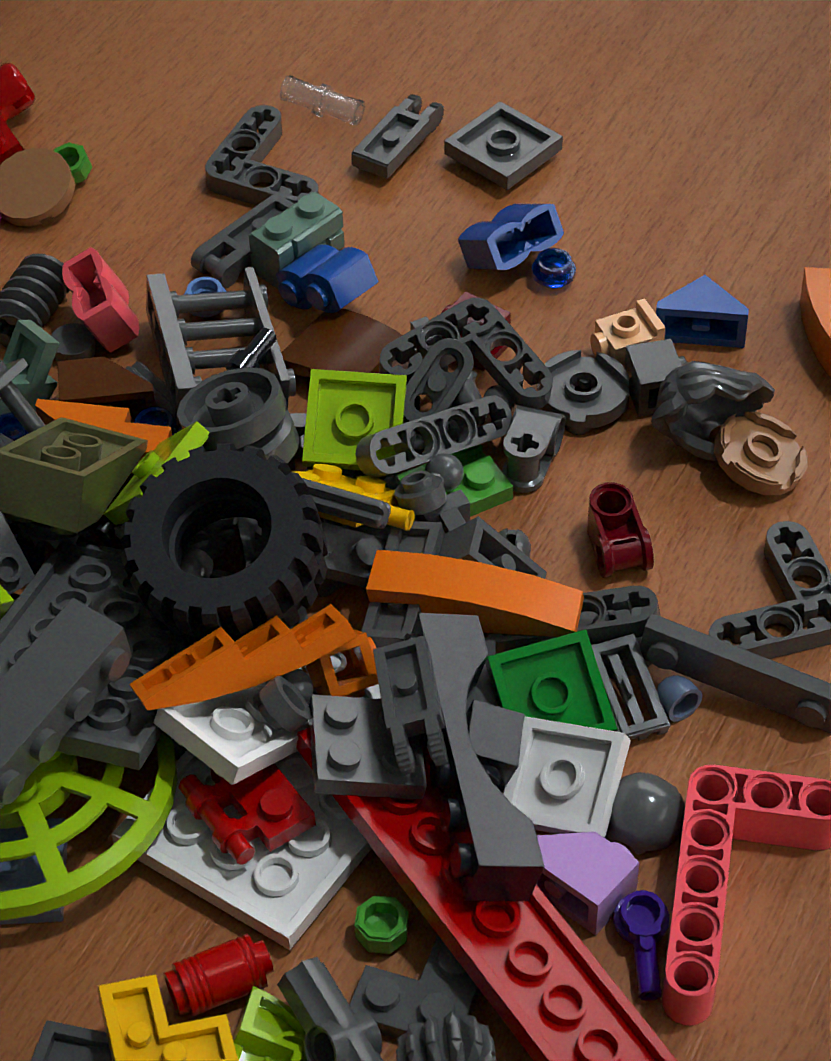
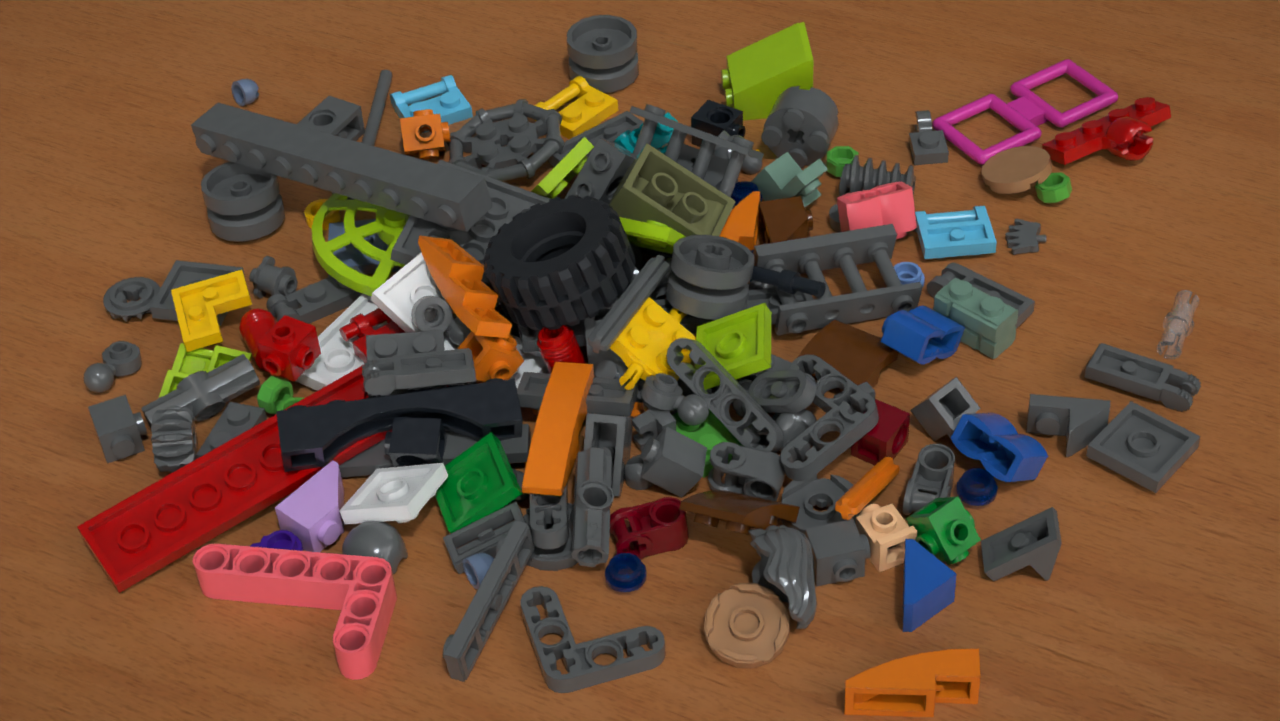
camera: 90 degrees right, 5 degrees down
(80, 975) = (272, 279): none -> dark grey brick
(127, 927) = (313, 301): none -> dark grey plate
(141, 200) = (1024, 237): none -> dark grey piece
(142, 245) = (955, 233): none -> medium azure plate
(247, 165) = (1066, 282): dark grey beam -> none
(289, 907) = (289, 348): none -> red brick
(341, 593) = (559, 346): none -> red head
(342, 950) = (273, 392): none -> bright green tile
(452, 267) = (944, 408): none -> dark grey brick
(469, 186) = (1068, 416): none -> dark grey slope
(517, 500) = (673, 461): none -> dark grey brick
(552, 297) = (930, 478): none -> dark grey piece
(575, 338) = (867, 488): none -> orange axle
(602, 566) = (591, 507): none -> dark grey piece
(612, 435) = (737, 510): none -> reddish brown slope
(632, 279) = (945, 529): none -> green brick
(655, 230) = (1024, 544): none -> dark grey slope
(678, 560) = (625, 573): none -> clear blue plate

